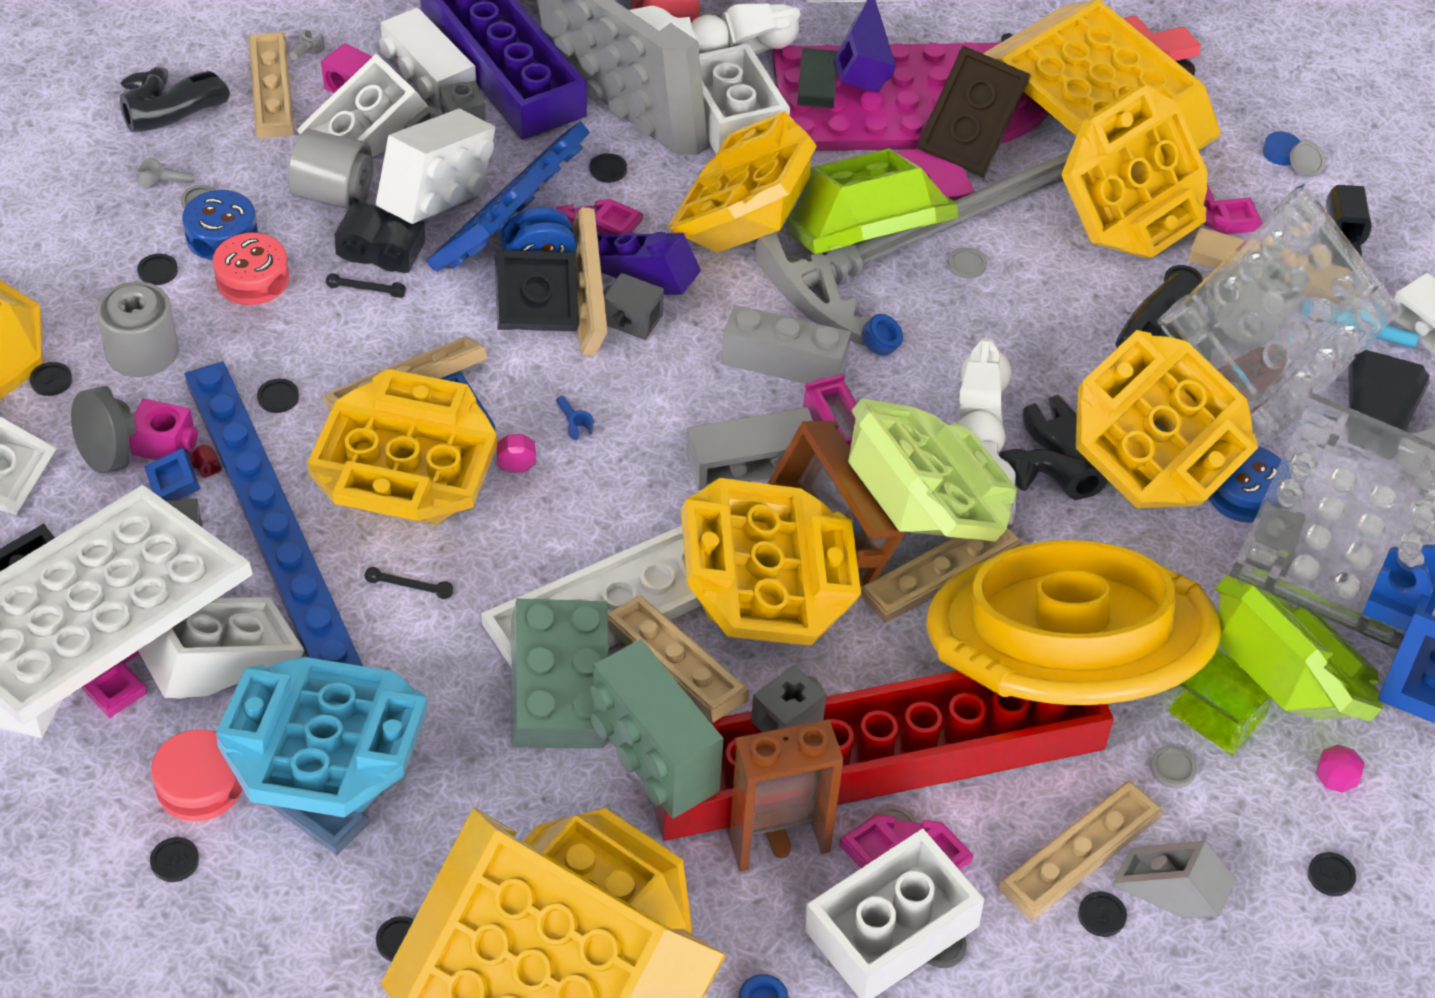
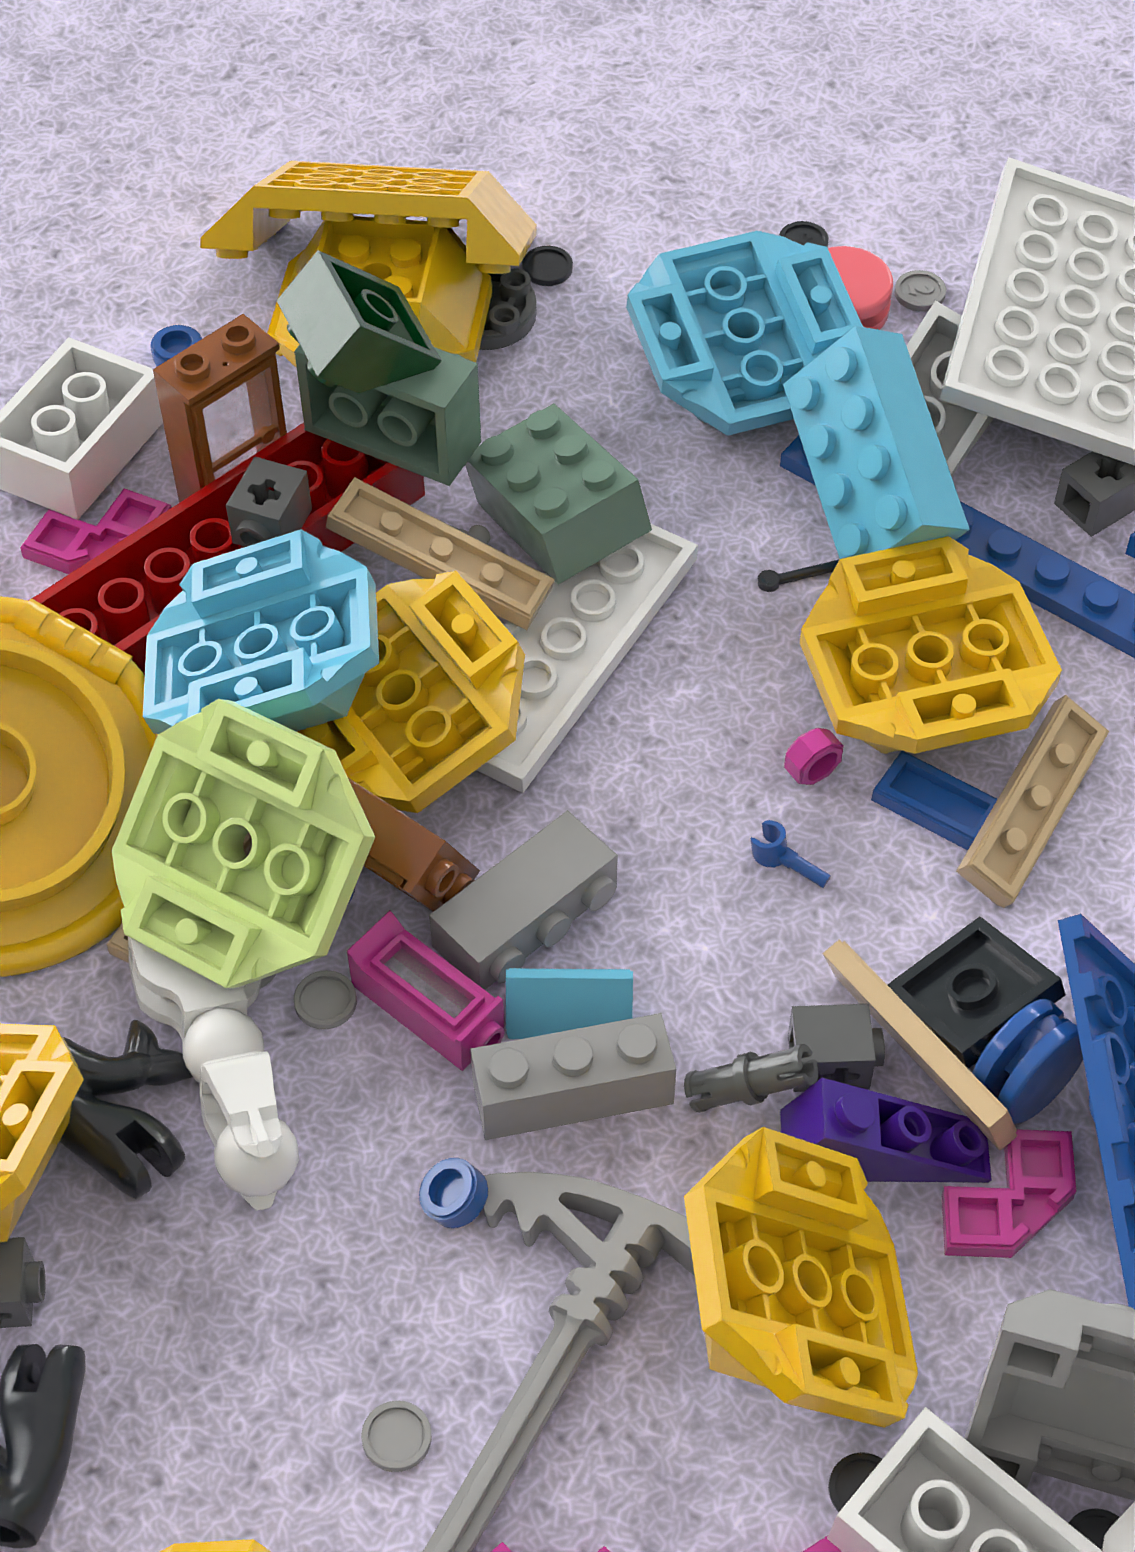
camera: 155 degrees right, 5 degrees up
(128, 766) = (919, 290): none -> light grey piece
(329, 566) = (873, 445): none -> medium azure brick
(673, 701) = (354, 326): none -> dark green slope
(711, 319) = (751, 1078): none -> dark grey pin
(756, 391) = (565, 999): none -> medium azure slope
(865, 200) = (520, 1413): lime piece -> none
(877, 554) = (267, 628): none -> medium azure piece

